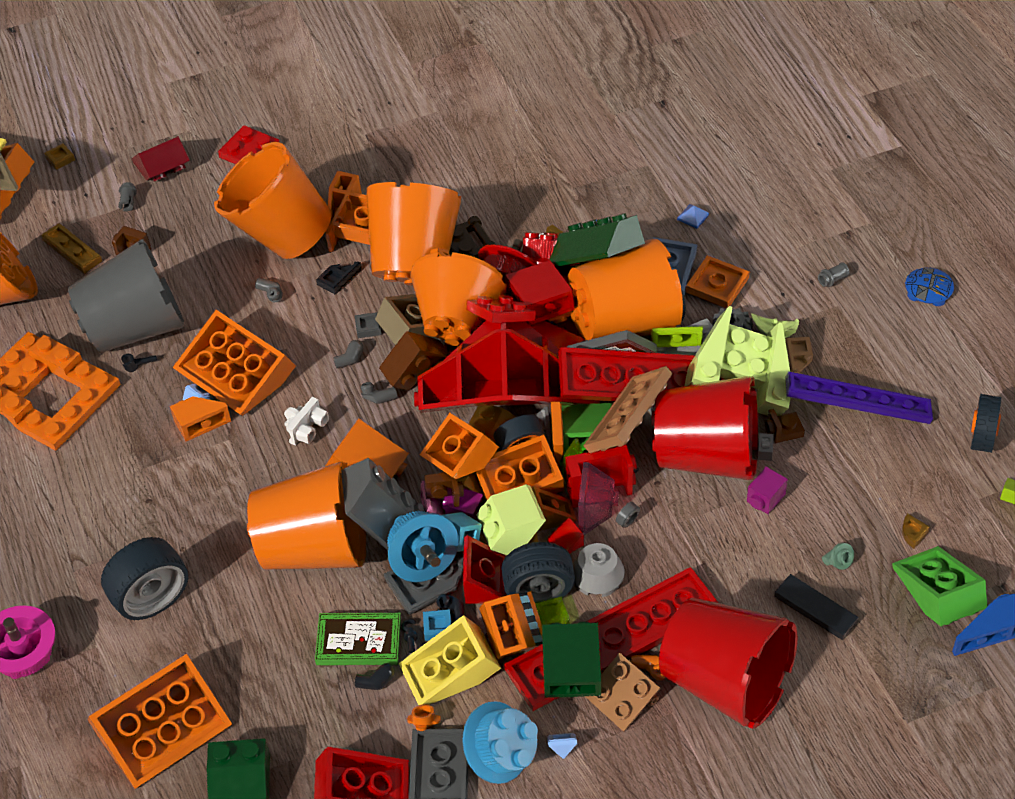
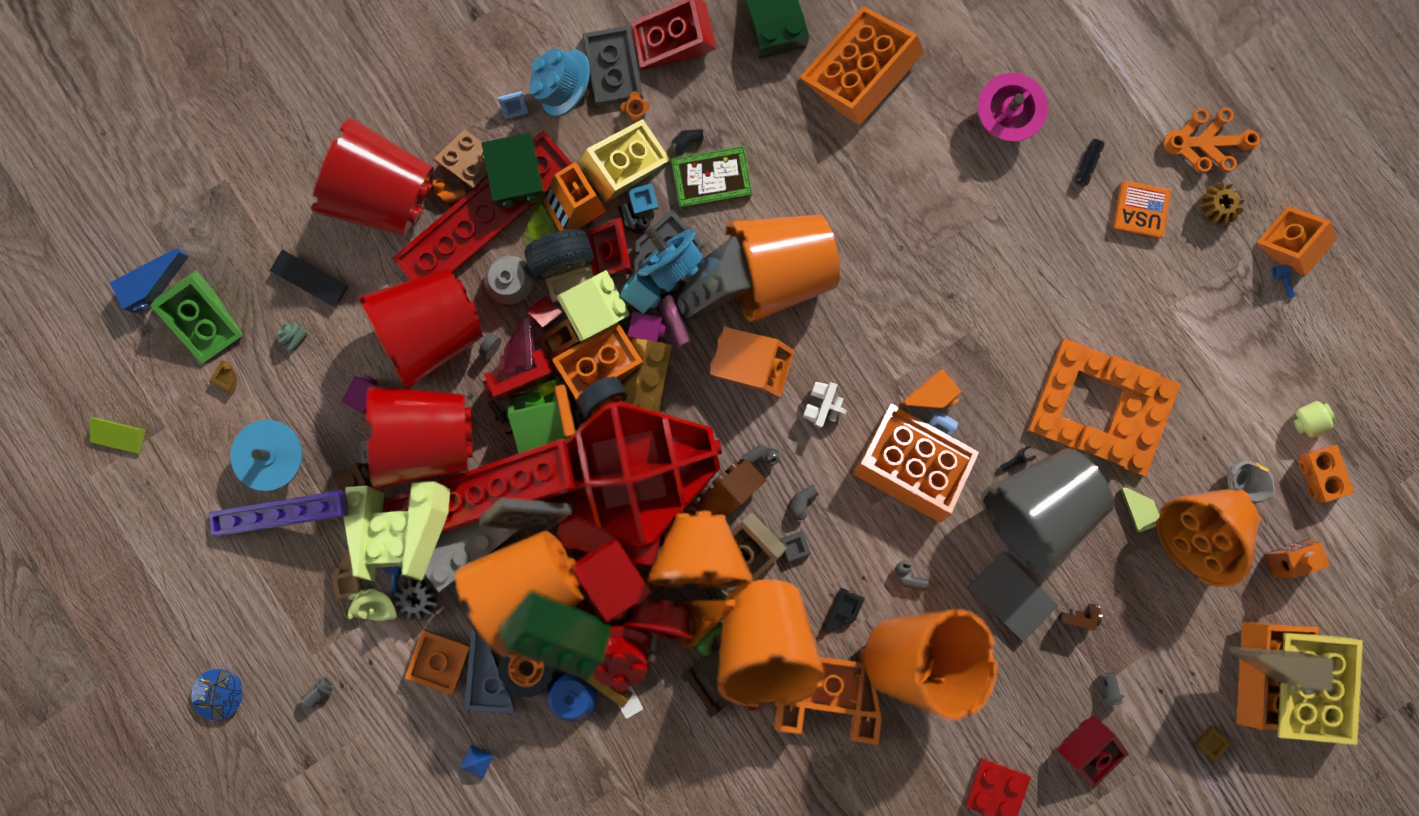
camera: 165 degrees right, 35 degrees up
(43, 310) = (1141, 509): none -> yellowish green tile
(71, 248) = (1145, 605): pearl gold tile -> none
(144, 578) = (916, 182): black wheel -> none
(185, 267) = (1012, 596): none -> dark grey tile
(410, 635) = (666, 188): black hand -> none
(443, 485) = (665, 328): reddish brown bracket -> none
(458, 448) = (654, 360): orange slope -> none
(501, 309) = (642, 529): red plate -> none
(628, 410) = (492, 423): medium nougat plate -> none
(677, 336) = (462, 552): lime slope -> none
(691, 519) = (423, 323): none -> red cone
(866, 445) = (266, 455): none -> dark azure piece
(986, 423) = (152, 499): black wheel -> none

